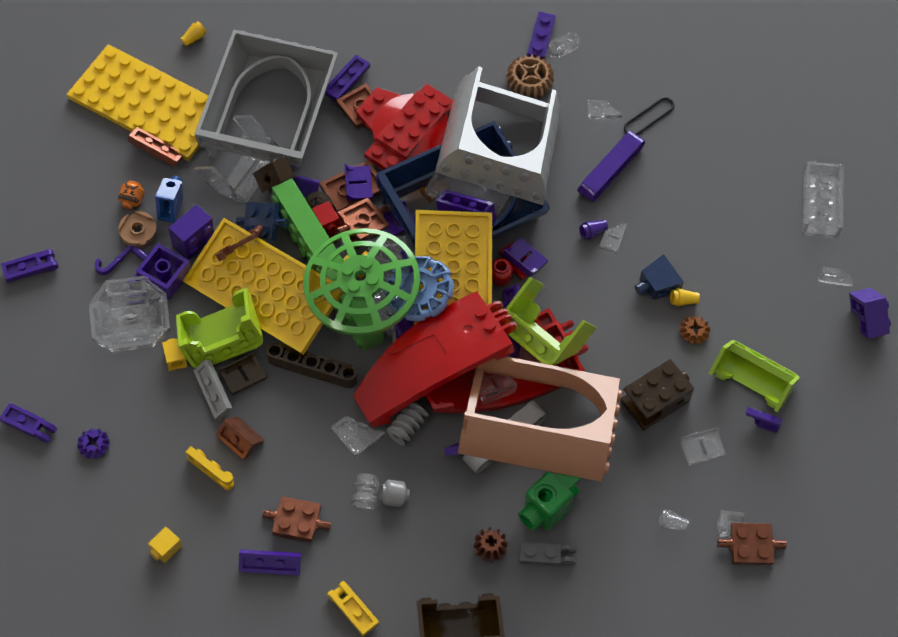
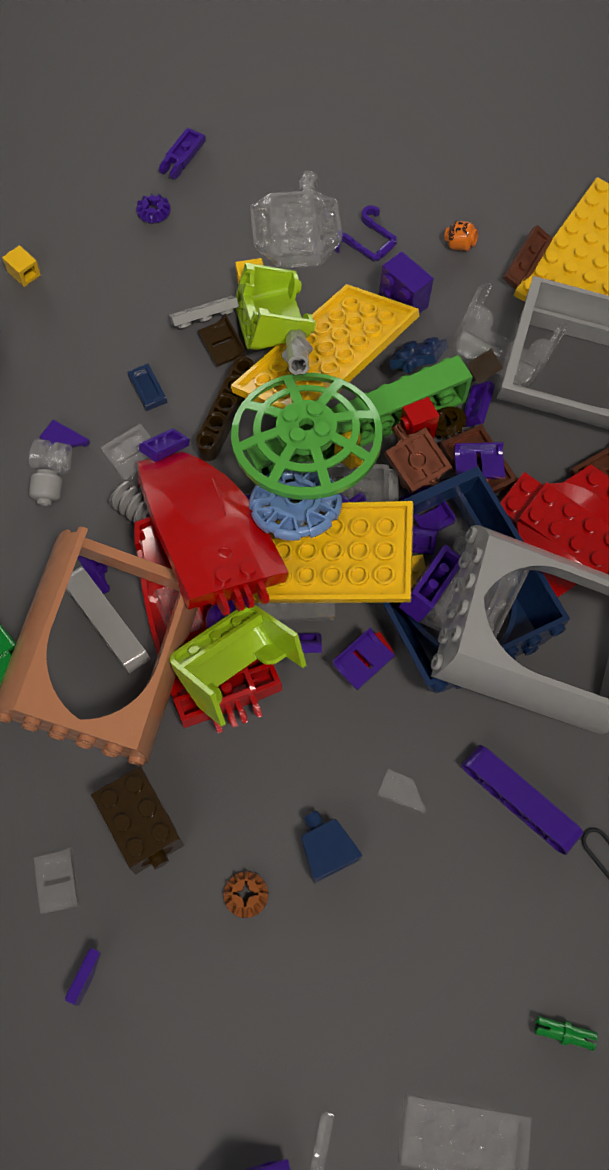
camera: 95 degrees right, 5 degrees up
(29, 265) = (371, 150): dark purple plate -> none
(73, 315) = (308, 181): none -> clear cone
(137, 239) = (418, 233): medium nougat plate -> none
(164, 269) = (355, 261): dark purple brick -> none
(171, 191) = (456, 267): blue torso -> none
(211, 469) = (105, 306): yellow plate -> none
(221, 254) = (399, 340): copper piece -> none
(239, 436) = (144, 338): copper panel -> none
(280, 295) = (297, 352): none -> light grey piece
(289, 430) = (147, 387): none -> dark blue tile
(296, 519) = (32, 390): copper plate -> none
(342, 490) = (59, 433): none -> dark purple tile
(350, 406) = (164, 444): none -> dark purple plate
(501, 272) = (343, 628): red head -> none
(592, 228) = (415, 762): dark purple cone -> none
(683, 297) = (296, 882): yellow cone -> none
(753, 148) = (565, 1033): none -> green pin
(755, 372) = (165, 983): lime windscreen -> none

